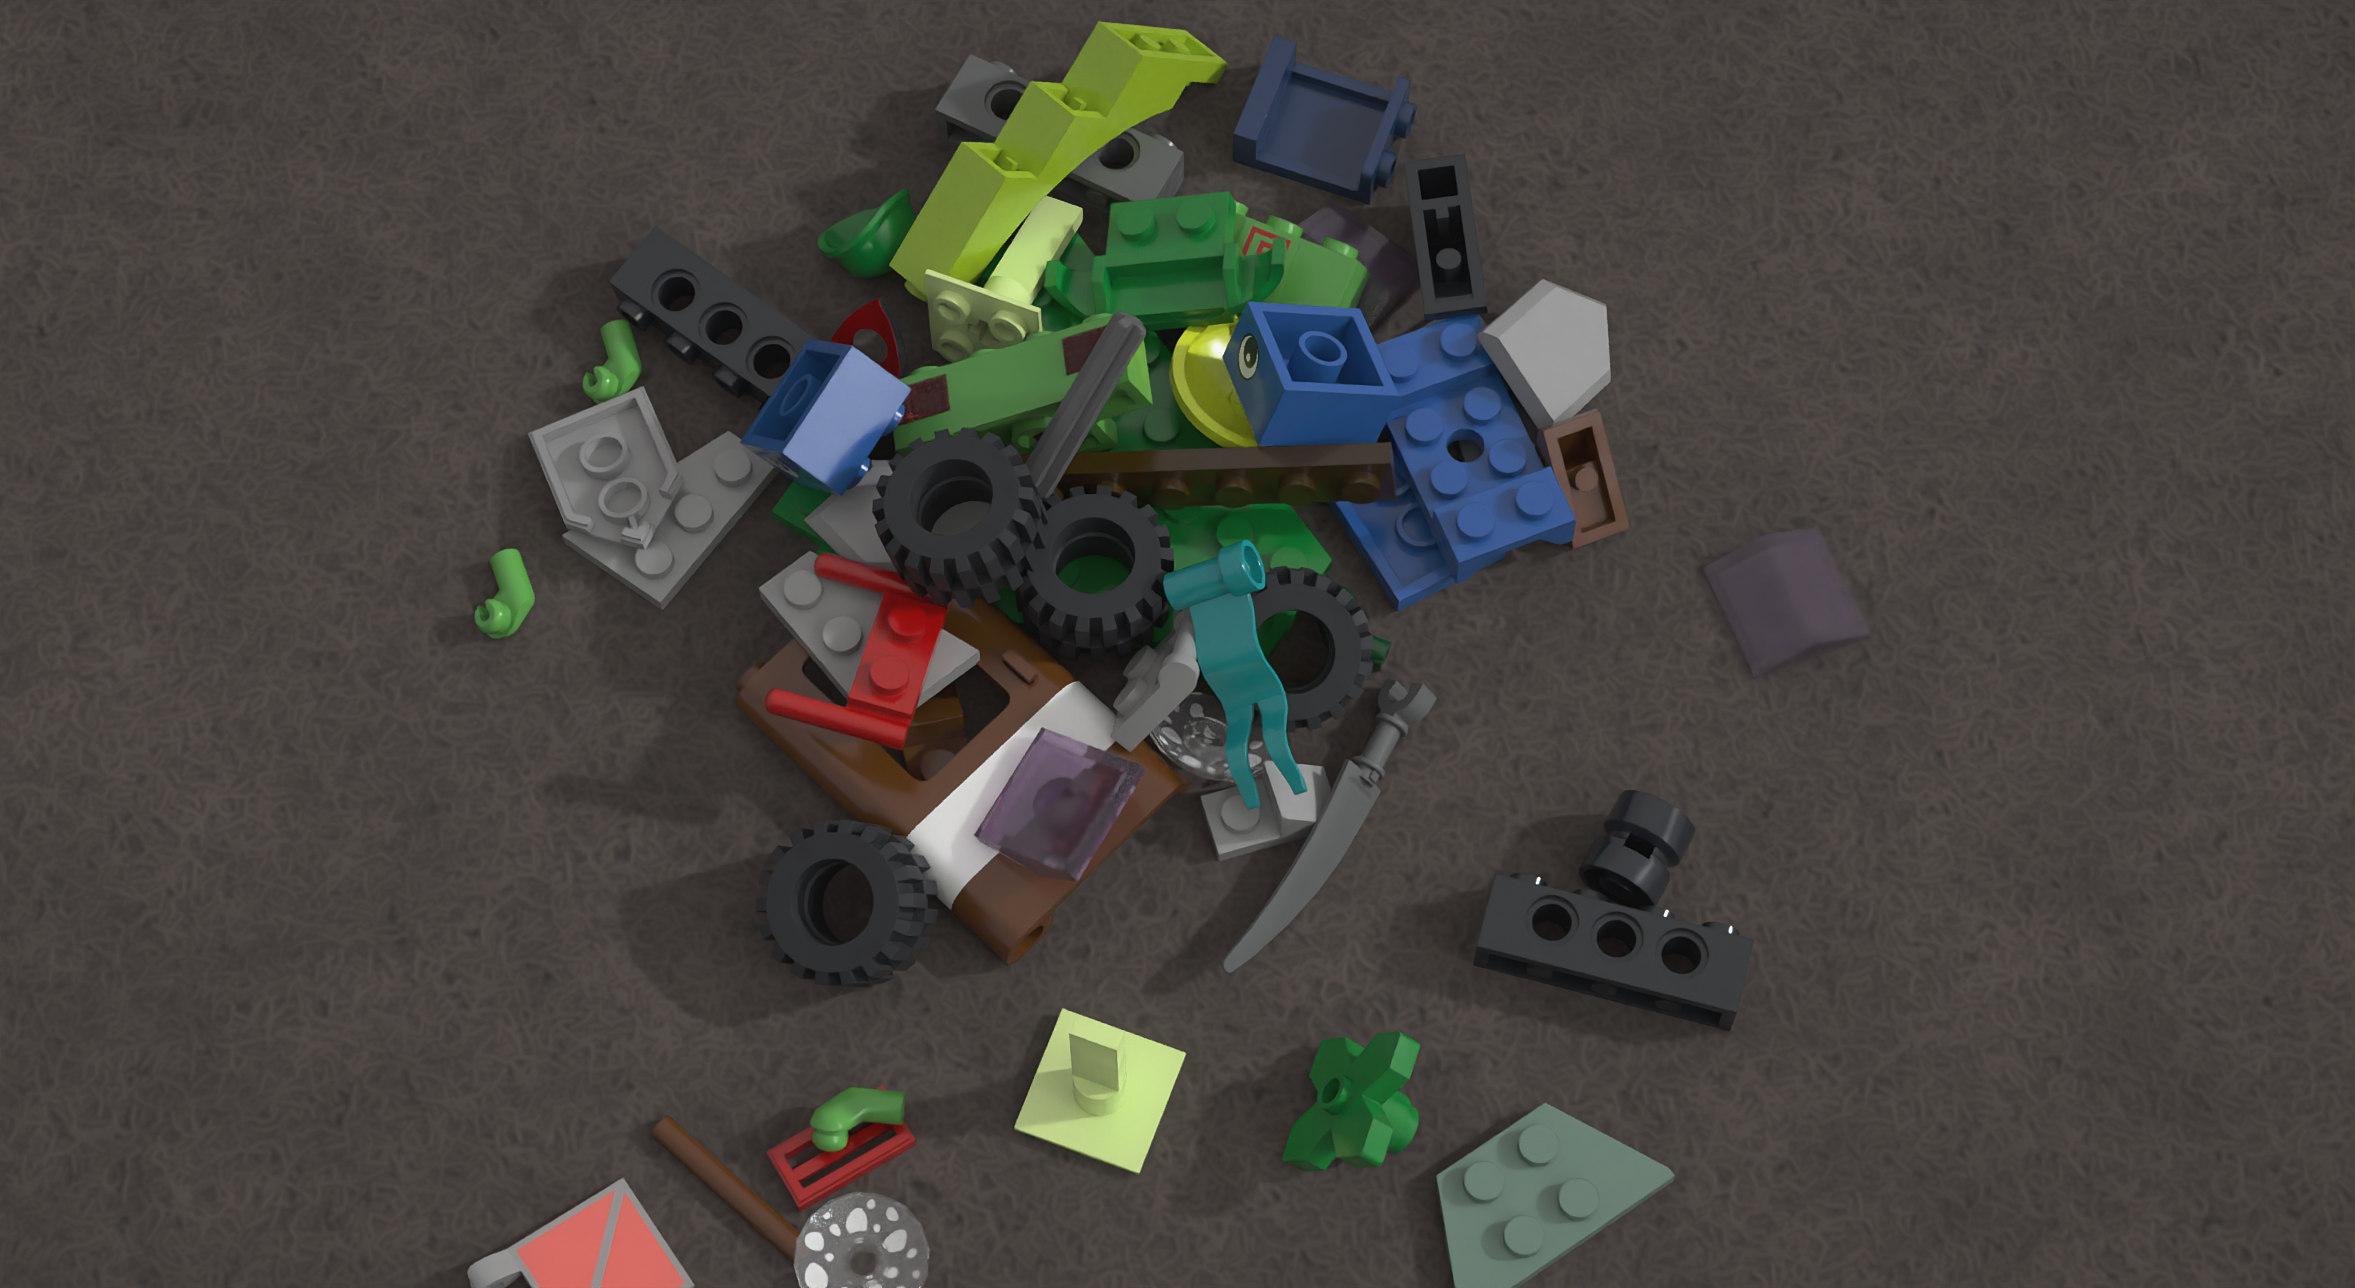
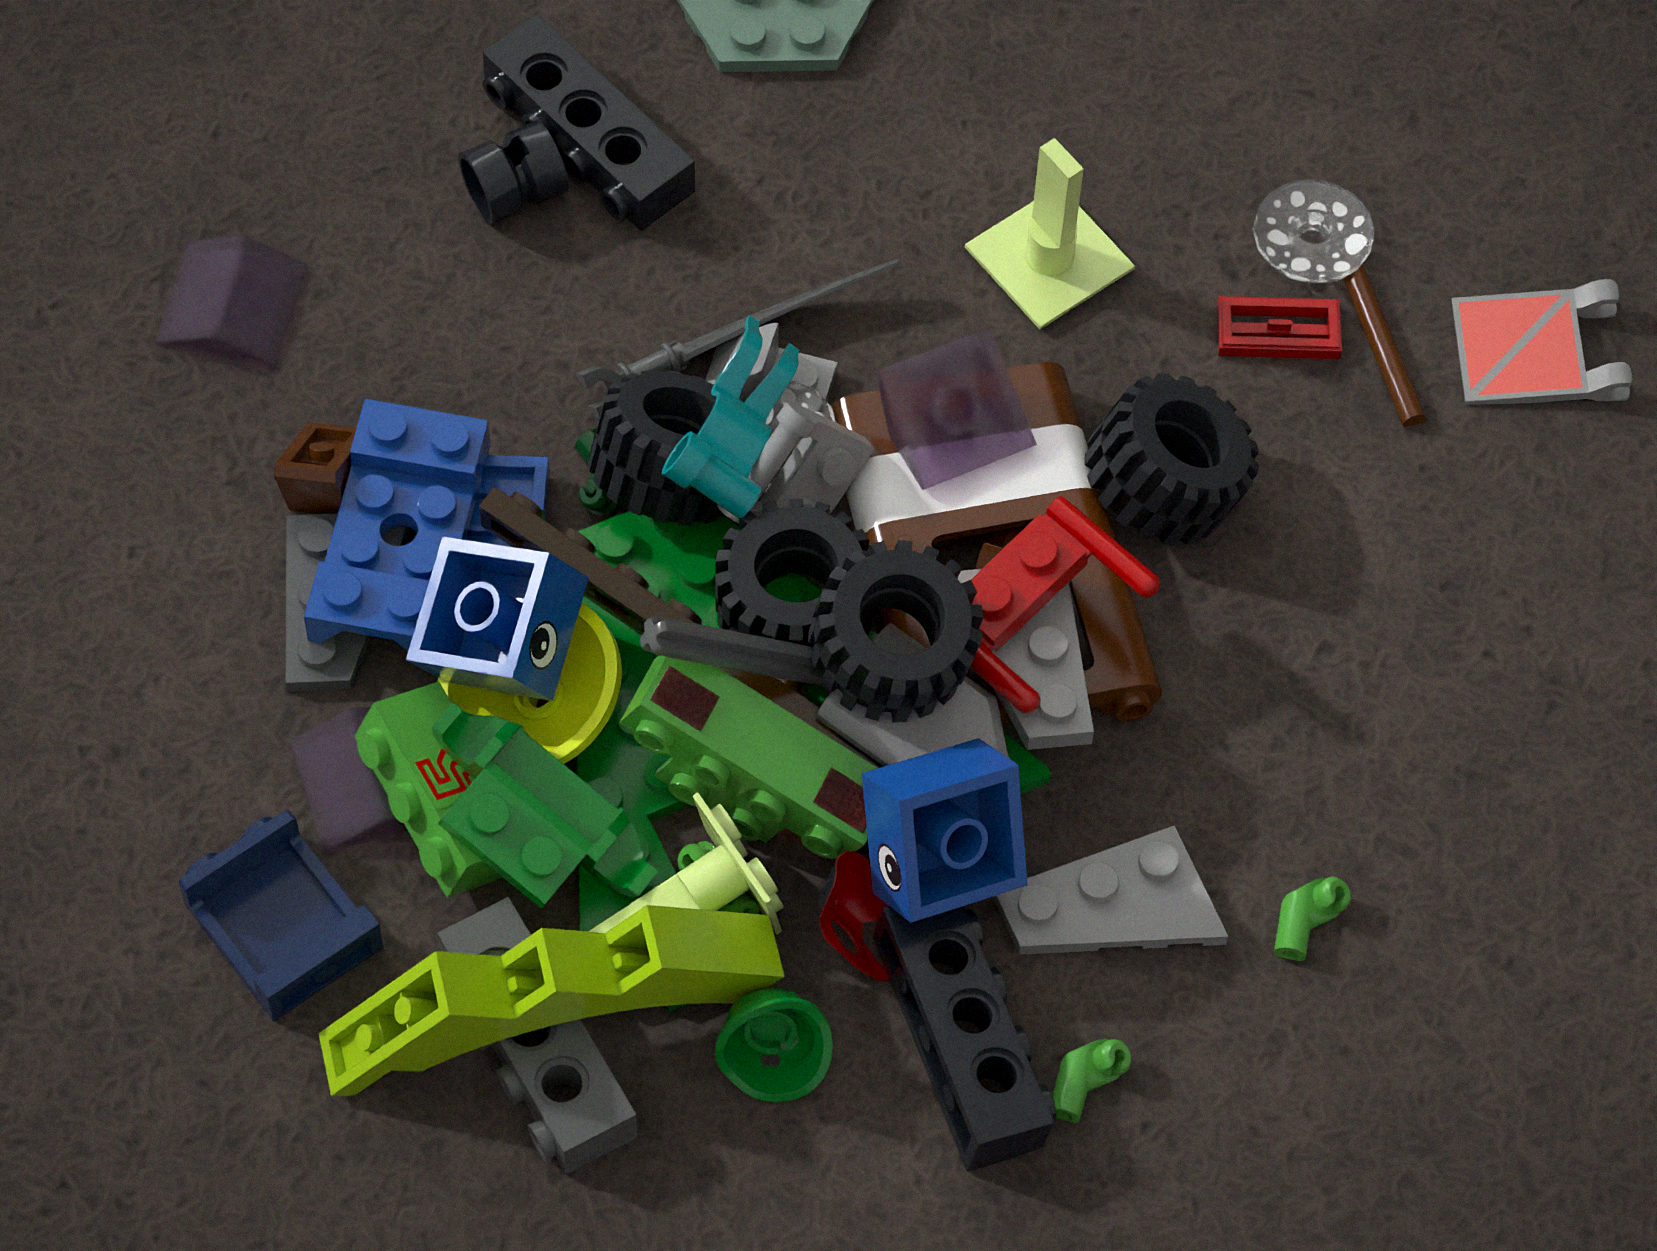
camera: 150 degrees left, 5 degrees down
(610, 469) = (1151, 963): light grey tile -> none
(849, 1109) = (1260, 326): bright green arm -> none
(1357, 1104) = (871, 115): green plant -> none
(1445, 237) = (275, 704): black slope -> none
(1551, 350) = (257, 570): light grey tile -> none

